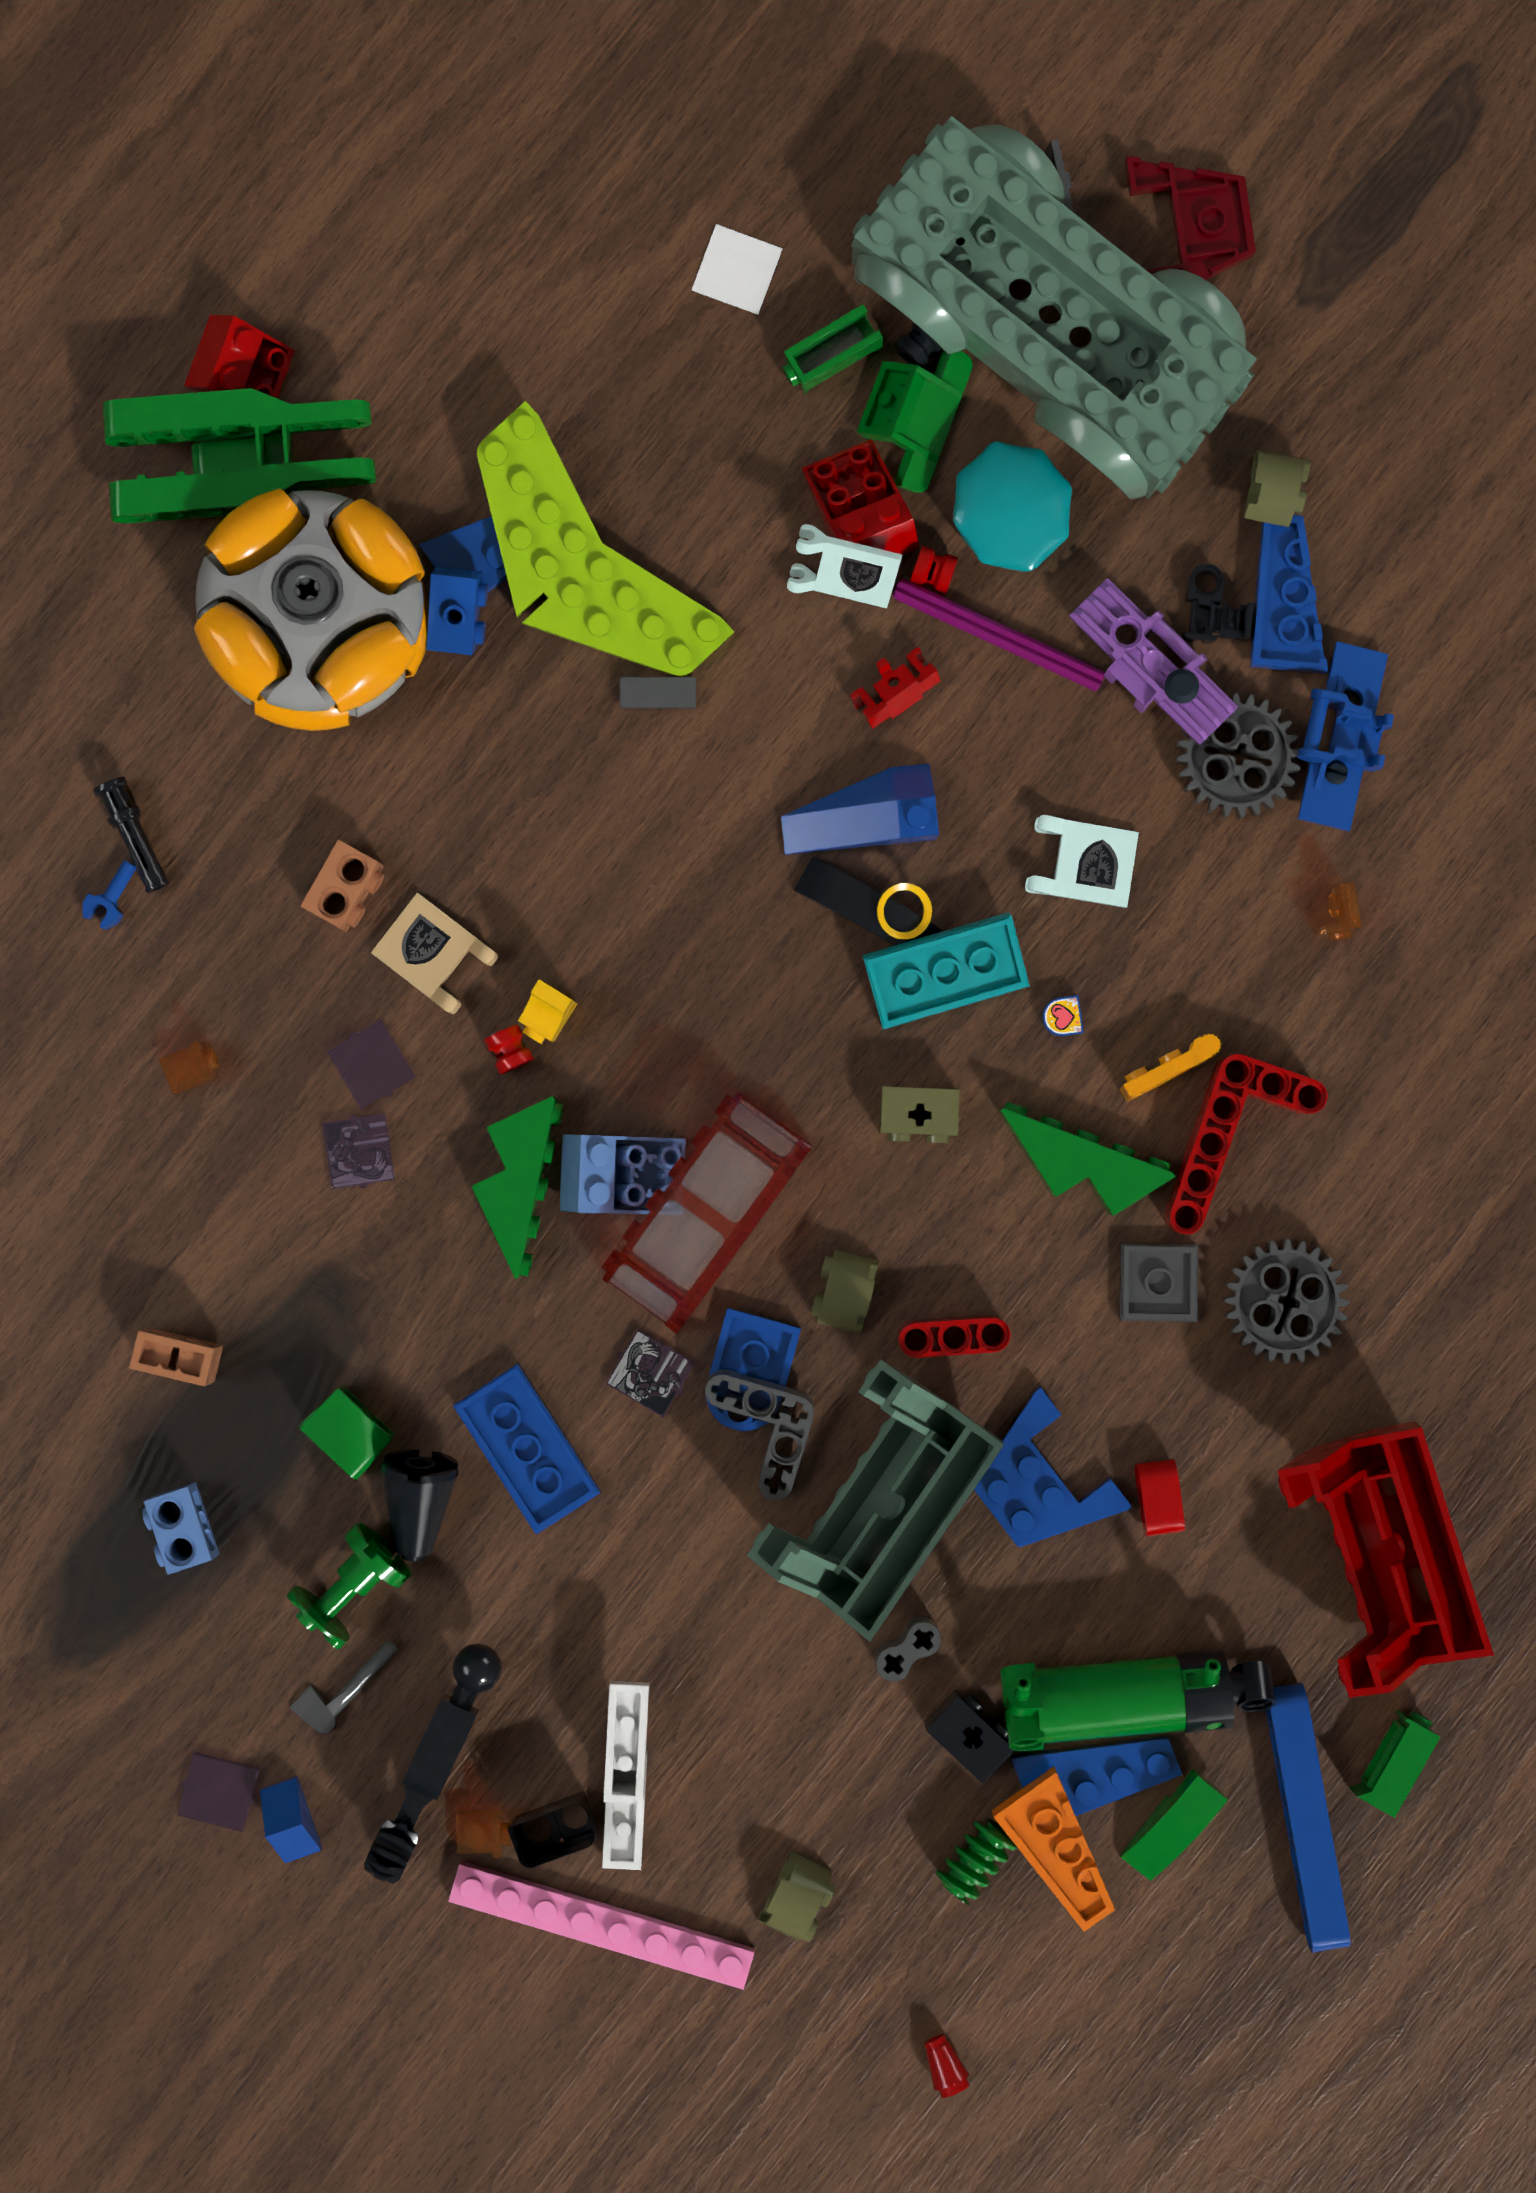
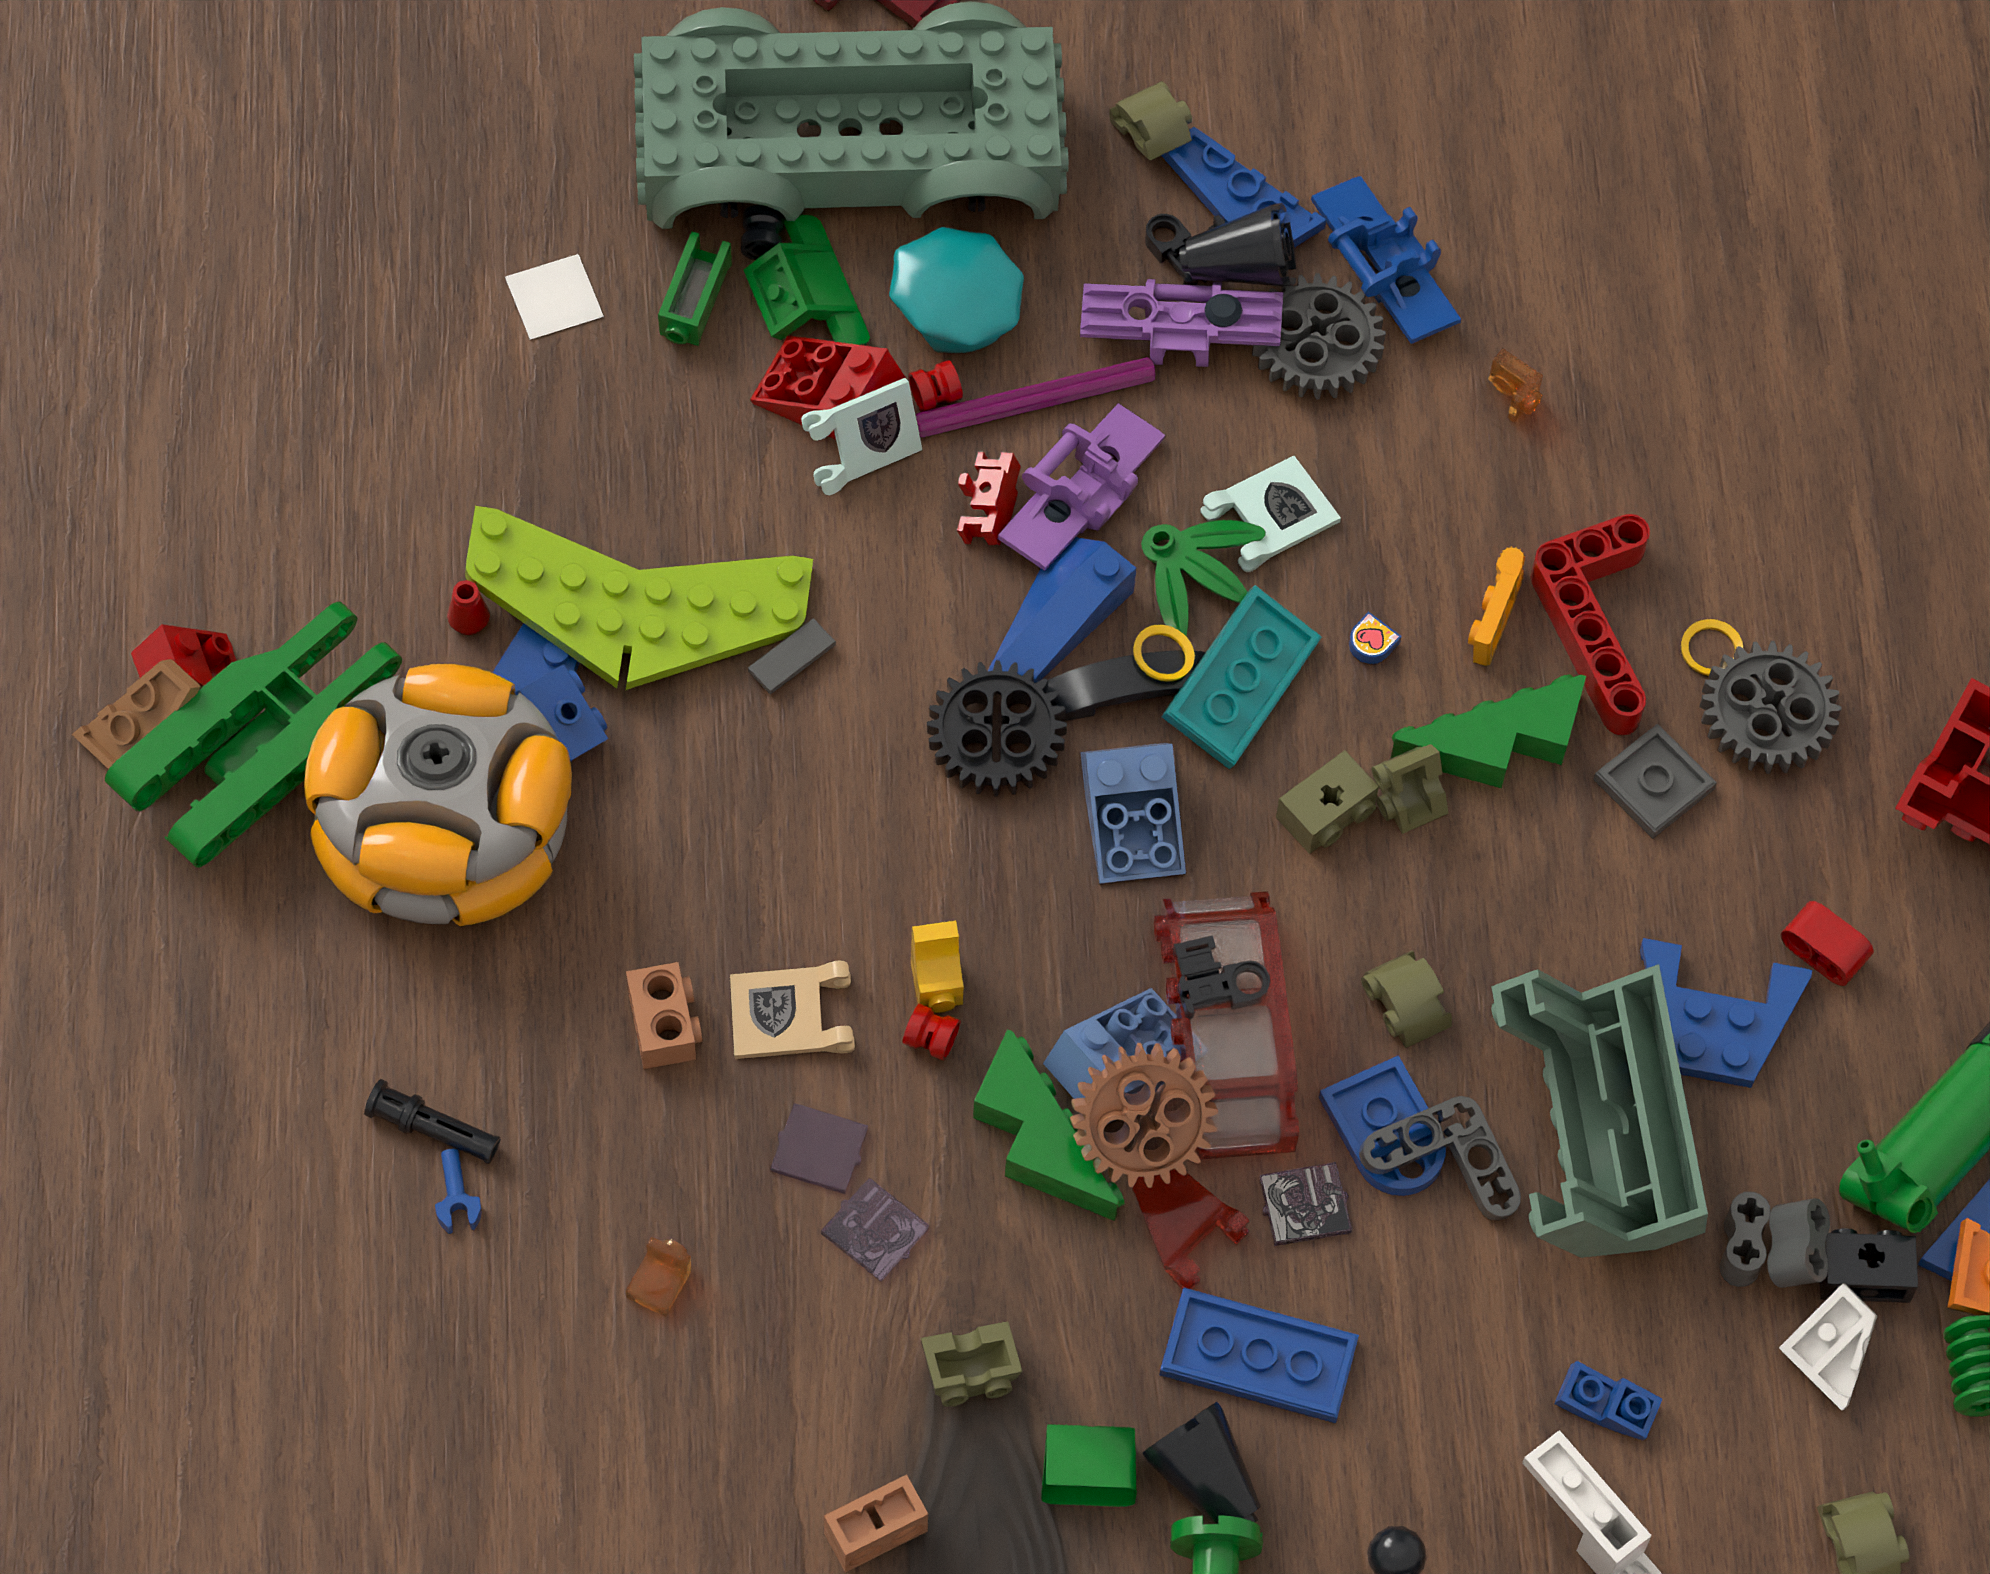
camera: 45 degrees left, 25 degrees down
(169, 370) = (137, 711): none -> medium nougat wing
(332, 1299) = (972, 1363): none -> olive cylinder
(465, 481) = (467, 609): none -> red cone
(560, 1311) = (1181, 1217): none -> clear red flag
(574, 1243) = (1107, 1101): none -> nougat gear
(692, 1193) = (1205, 983): none -> black piece
(719, 844) = (1036, 728): none -> black gear
(720, 1672) = (1608, 1403): none -> blue slope
(784, 1004) = (1133, 812): none -> medium blue slope
(895, 1766) = (1833, 1344): none -> white wing
(933, 1688) = (1798, 1243): none -> dark grey axle
(970, 745) = (1091, 496): none -> medium lavender piece
(971, 1343) = (1536, 937): red beam -> none
(982, 1151) = (1411, 788): none -> olive cylinder
(988, 845) = (1183, 554): none -> green plant
(1239, 653) = (1244, 250): none -> black cone
(1302, 1198) = (1706, 624): none -> yellow piece

